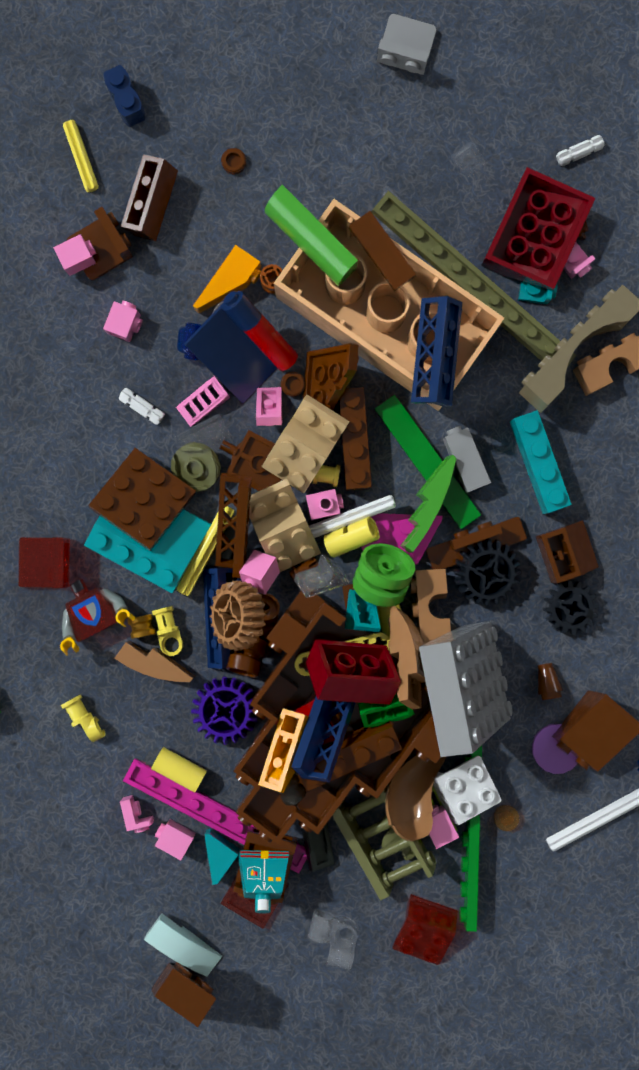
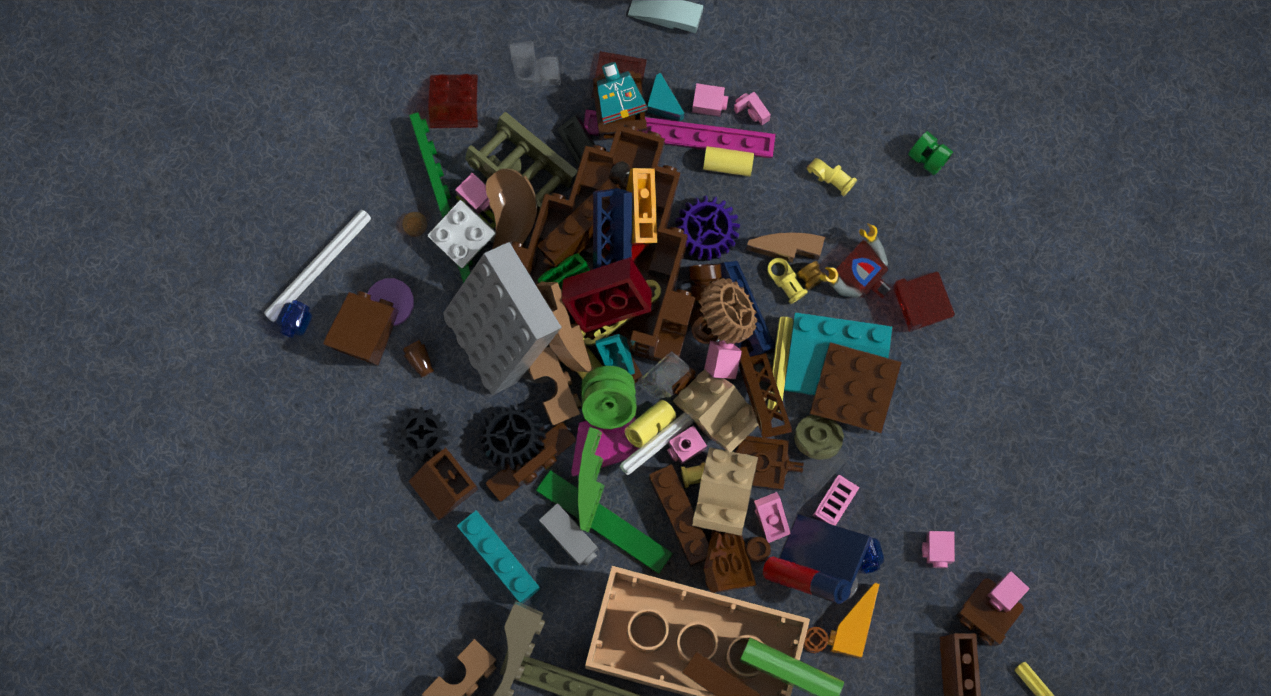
camera: 155 degrees right, 10 degrees down
(141, 406) = (891, 476): white axle -> none
(442, 351) = (632, 608): dark blue fence -> none

